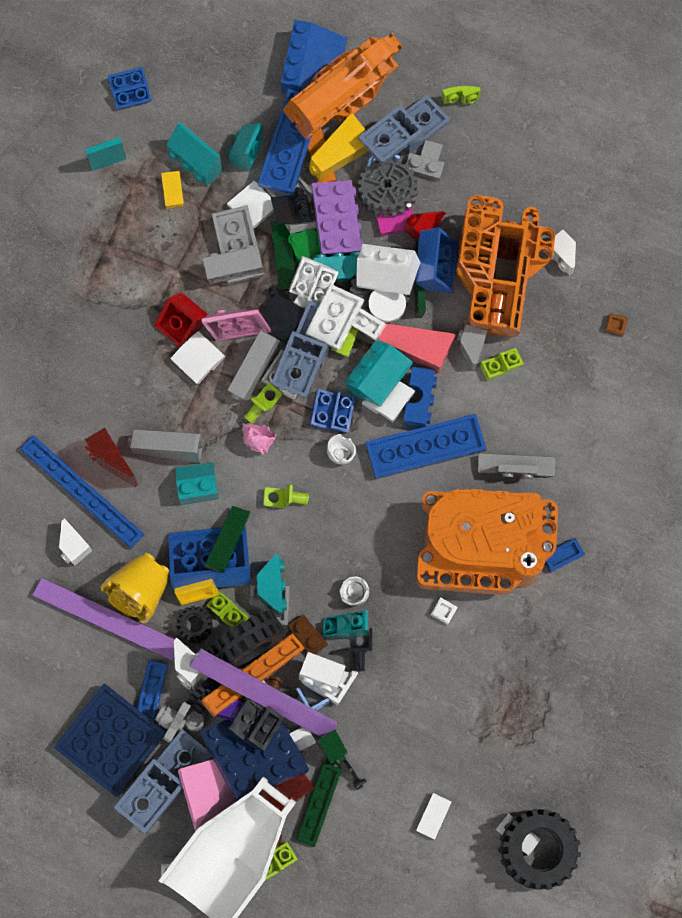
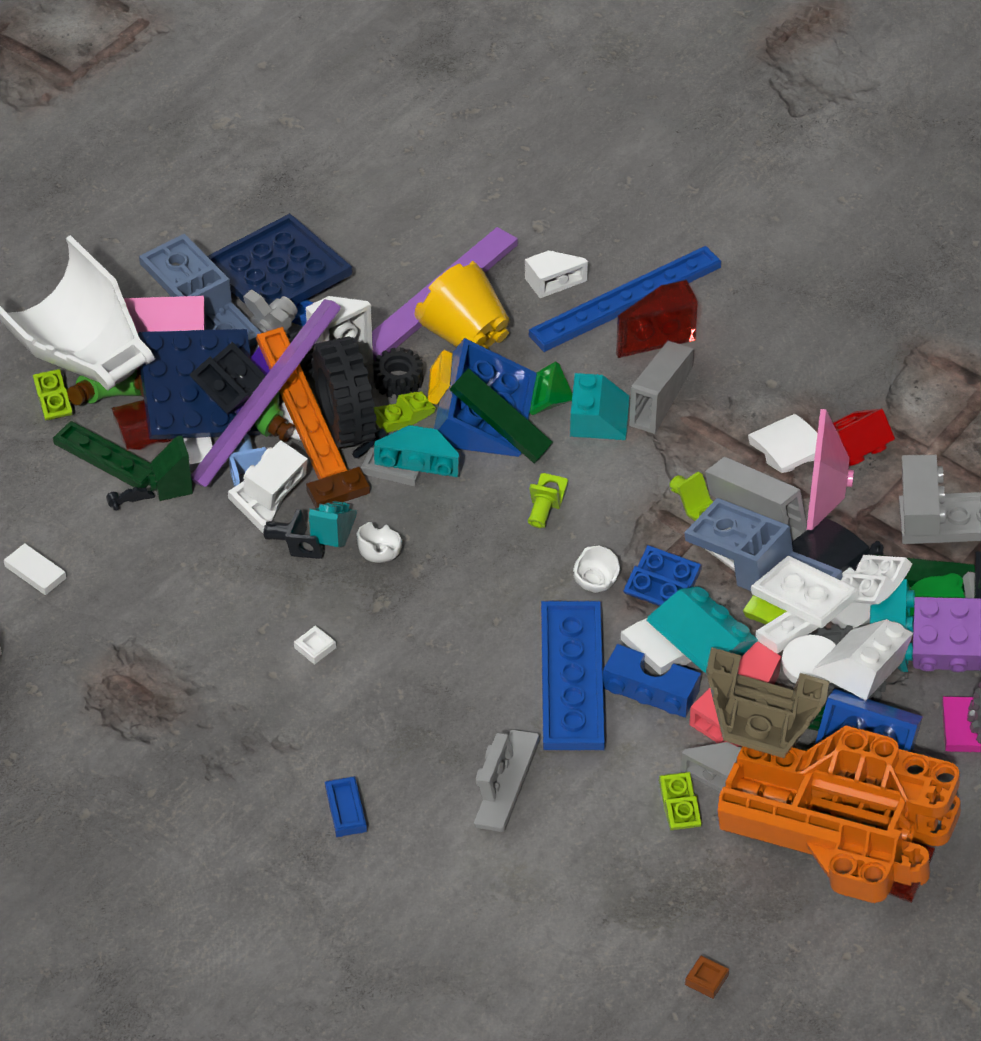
camera: 105 degrees right, 25 degrees down
(185, 519) = (550, 389): none -> green slope
(258, 437) = (644, 480): bright pink hair -> none
(422, 221) = (944, 741): red slope -> none
(449, 314) = (761, 712): none -> dark tan wedge
(485, 538) = (394, 687): orange piece -> none
(564, 252) = (854, 929): white slope -> none

